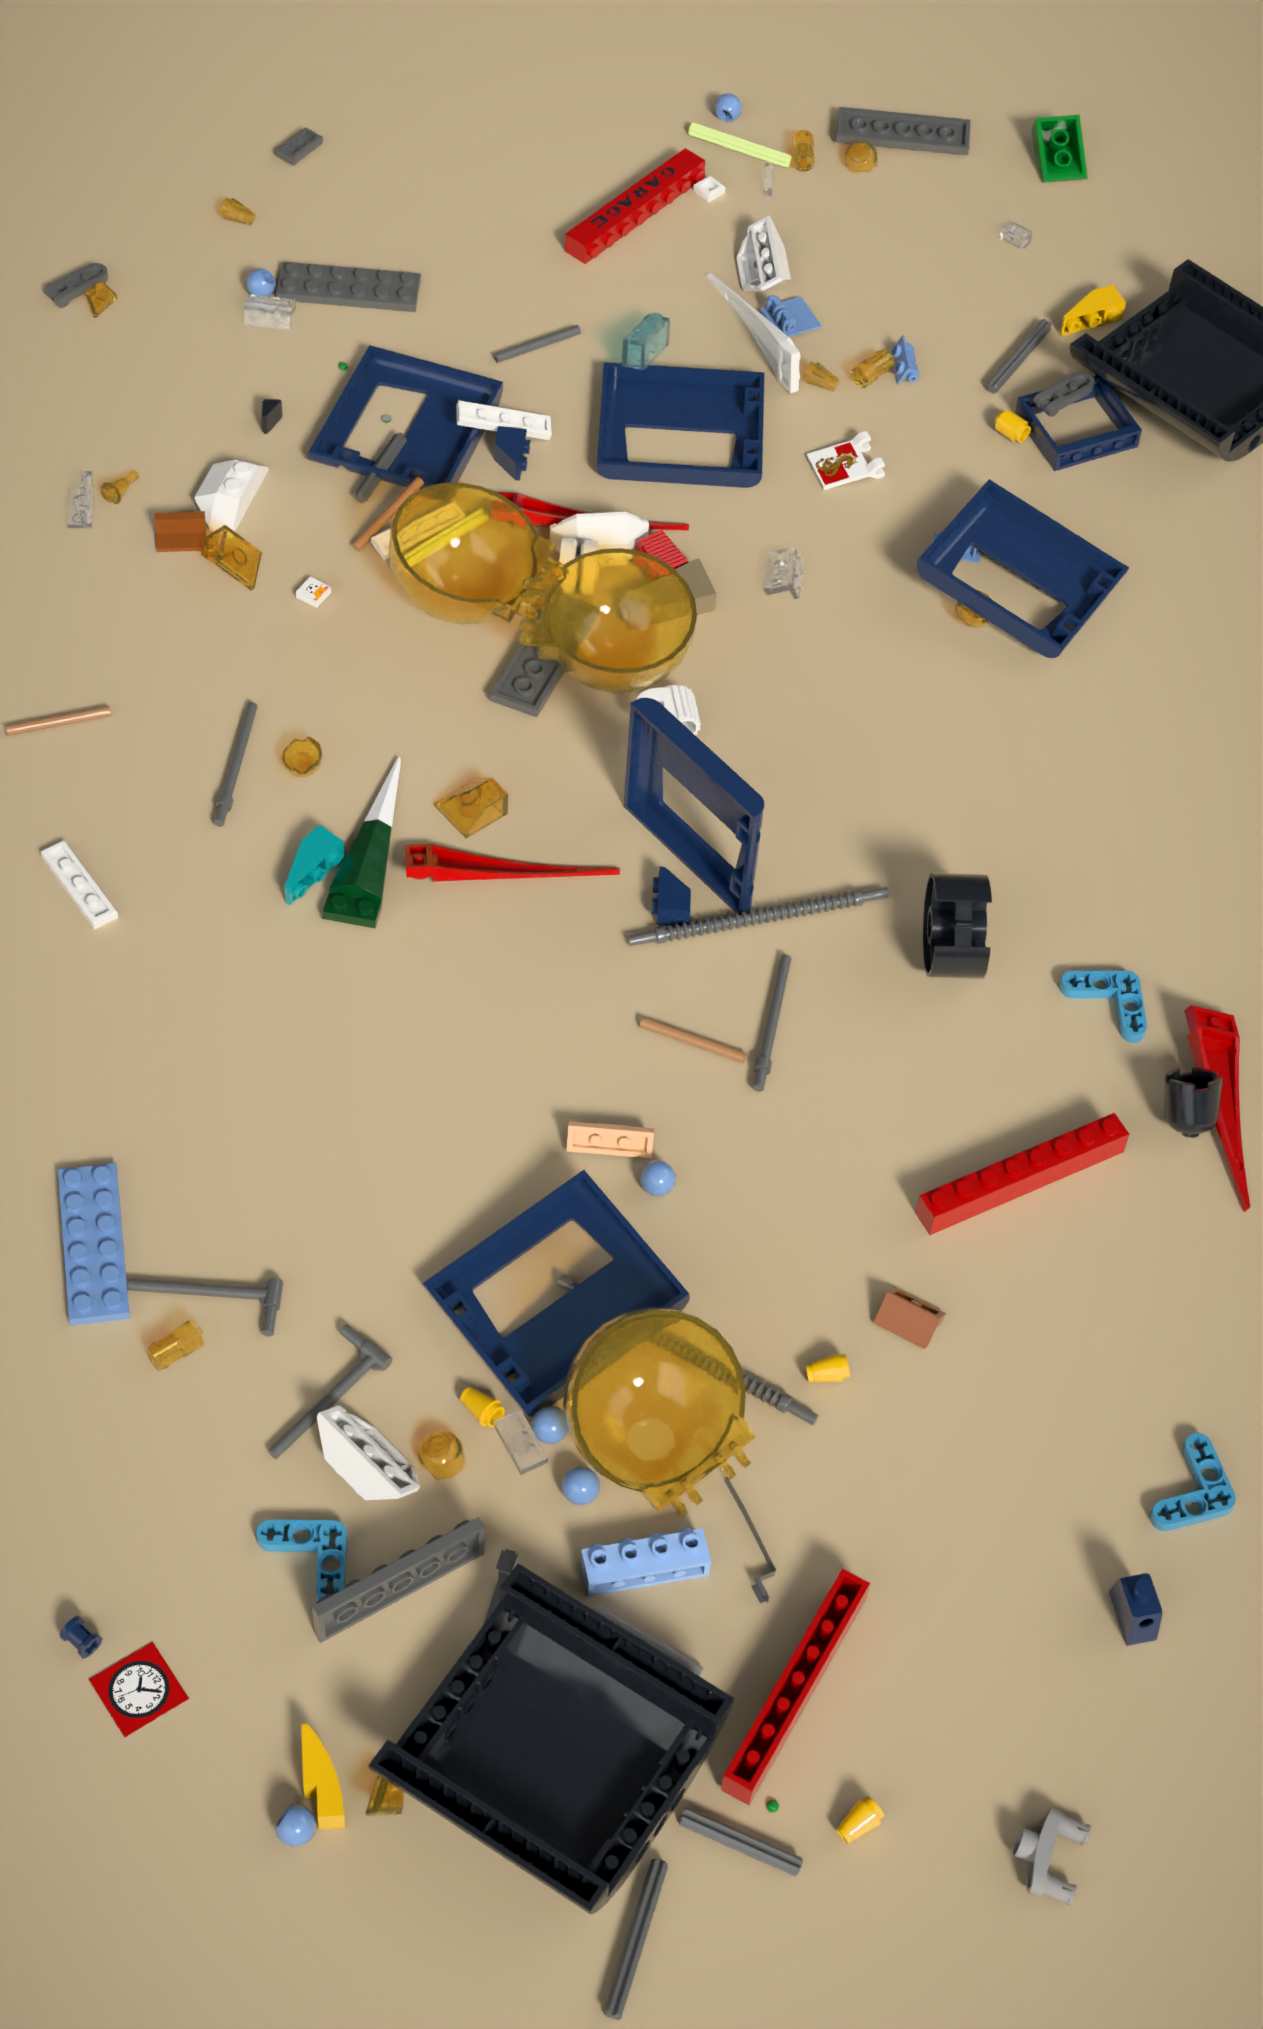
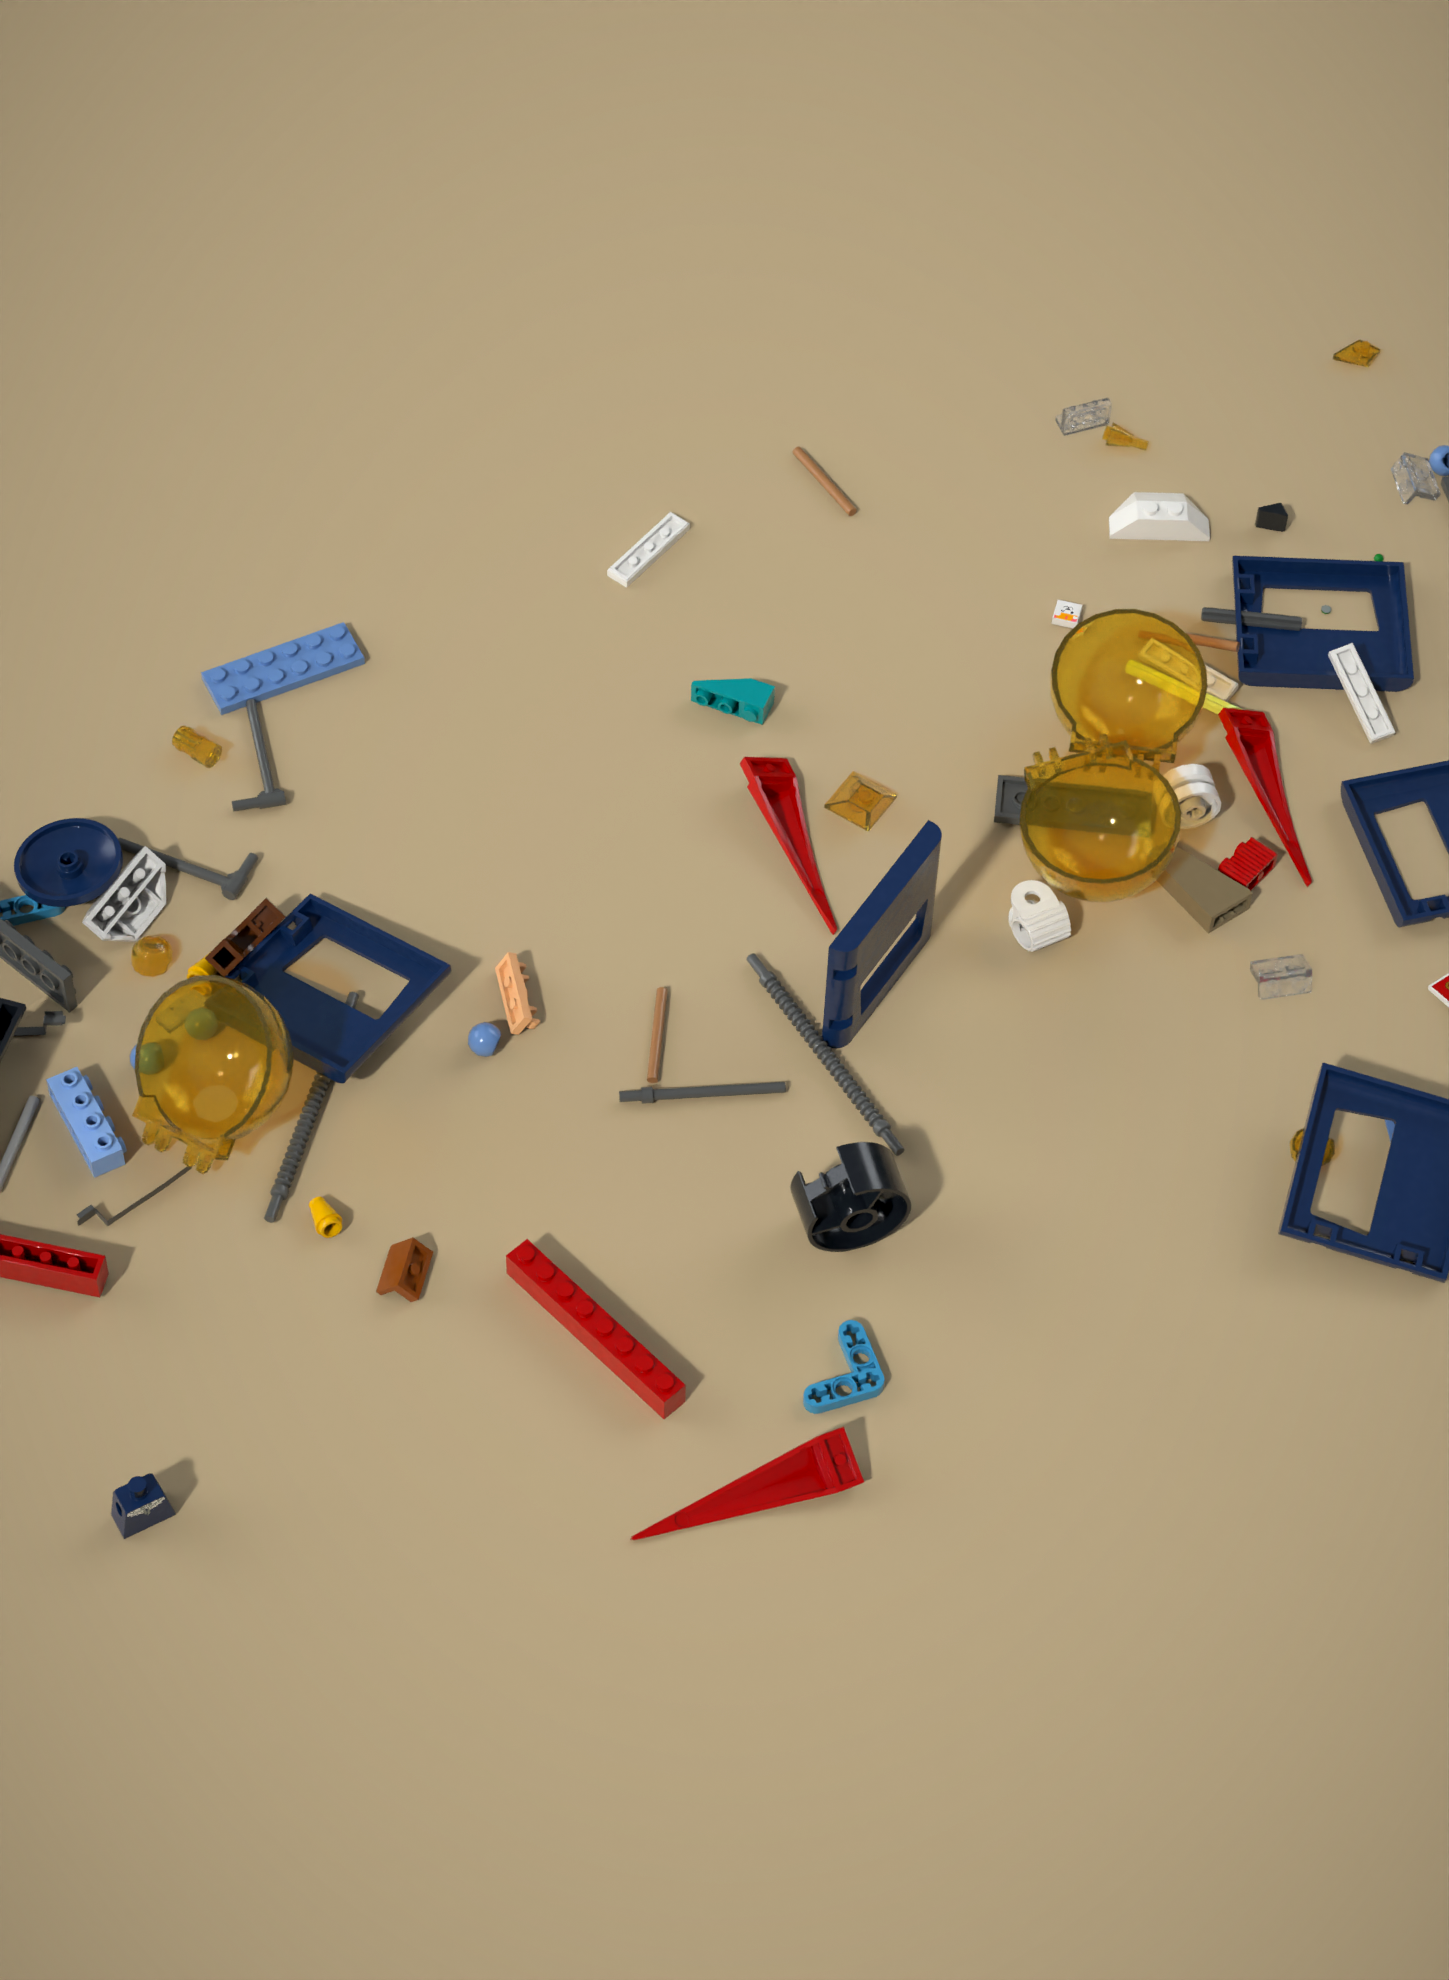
camera: 75 degrees right, 0 degrees up
(76, 283) = (1366, 330): dark grey plate -> none
(180, 531) = (1089, 498): dark orange panel -> none
(225, 800) = (782, 620): dark grey bar -> none
(233, 555) = (1071, 541): clear yellow slope -> none
(302, 757) = (854, 657): clear yellow hair -> none
(302, 1498) = (68, 862): none -> dark blue dish
(360, 881) = (730, 740): dark green plate -> none
(460, 1359) = (245, 937): none -> reddish brown arch
(510, 450) = (1329, 712): dark blue slope -> none
(609, 529) = (1244, 812): white wedge -> none
(672, 901) = (806, 977): dark blue slope -> none
(1192, 1100) = (727, 1450): black cylinder -> none
(1205, 1495) = (291, 1553): dark azure beam -> none

